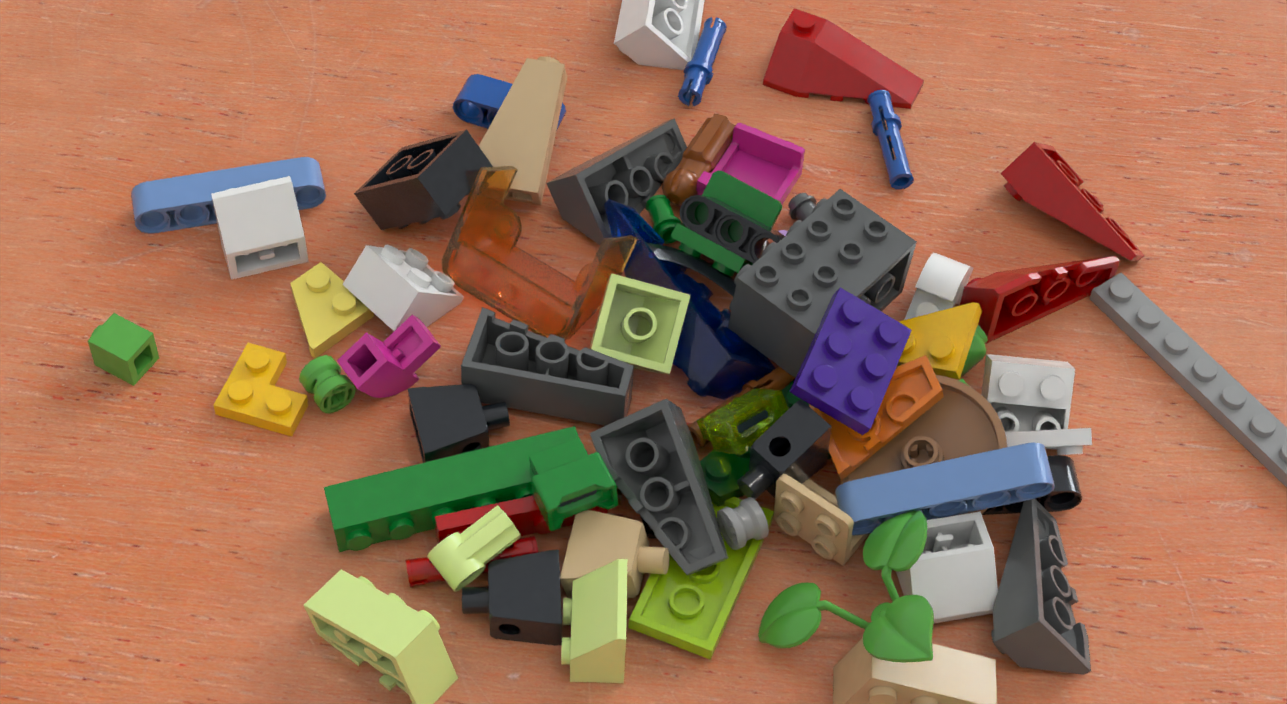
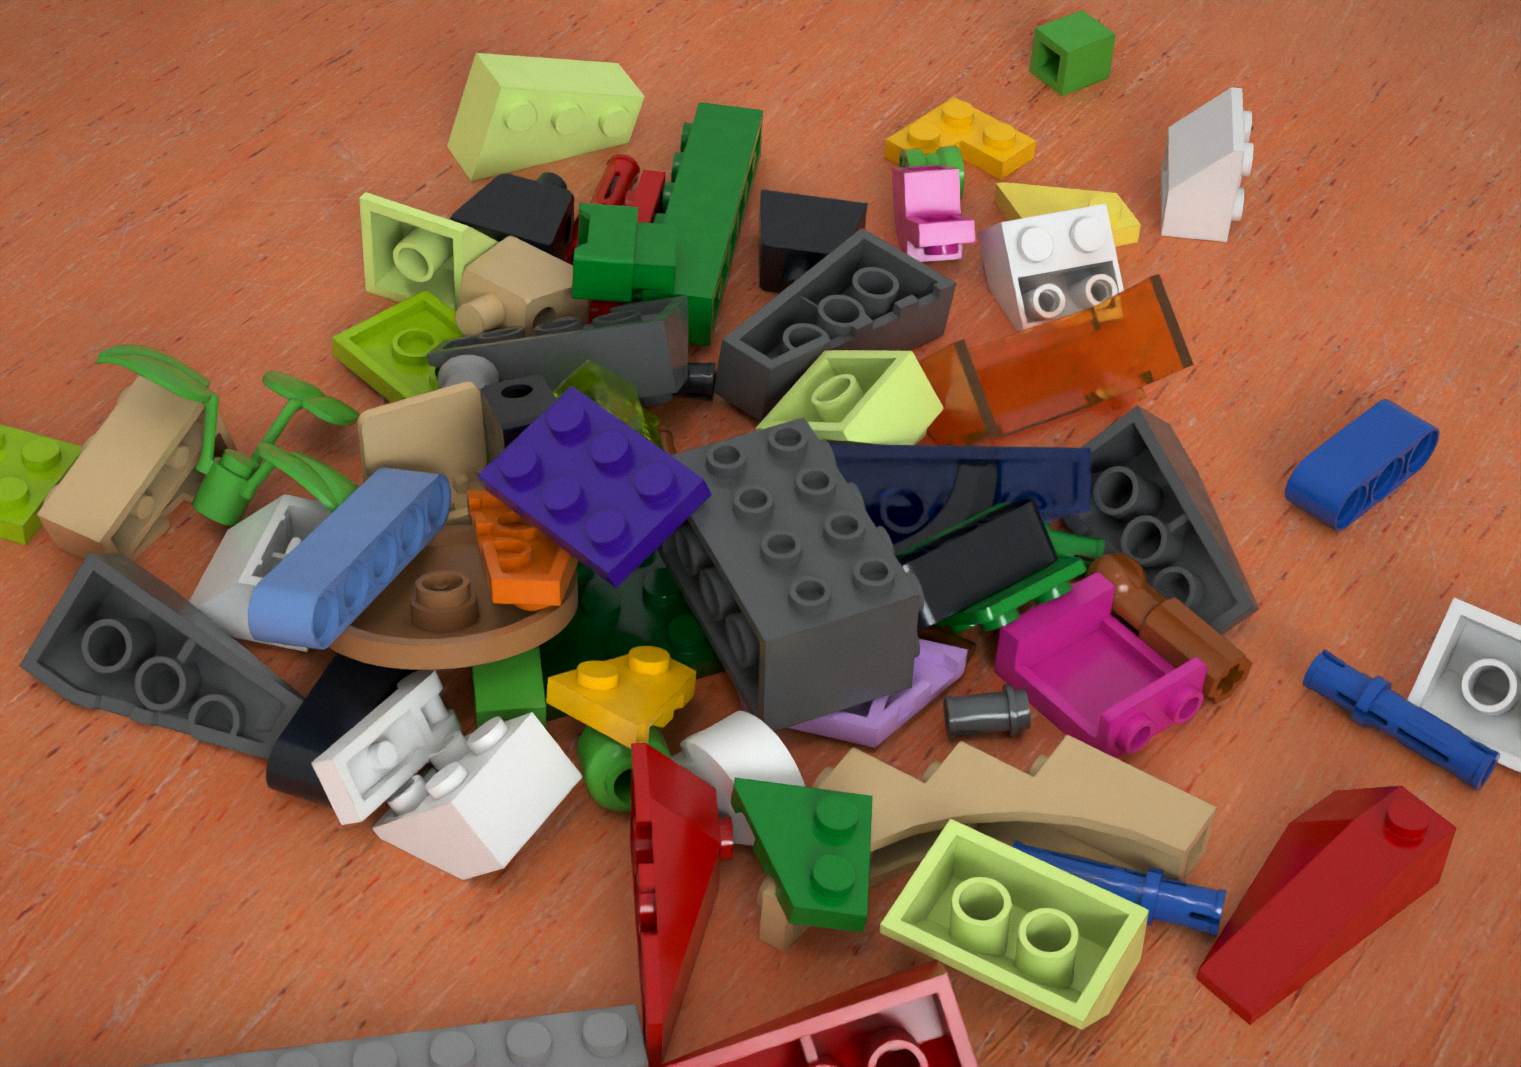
camera: 115 degrees right, 10 degrees down
(188, 201) = (1295, 183): medium blue beam -> none
(423, 181) = (1207, 285): black brick -> none
(464, 555) = (594, 173): yellowish green piece -> none
(527, 127) = (1276, 420): tan slope -> none
(860, 166) = (1066, 804): none -> tan arch
(964, 152) = (1020, 925): none -> yellowish green slope
(981, 227) = (812, 848): none -> green wing

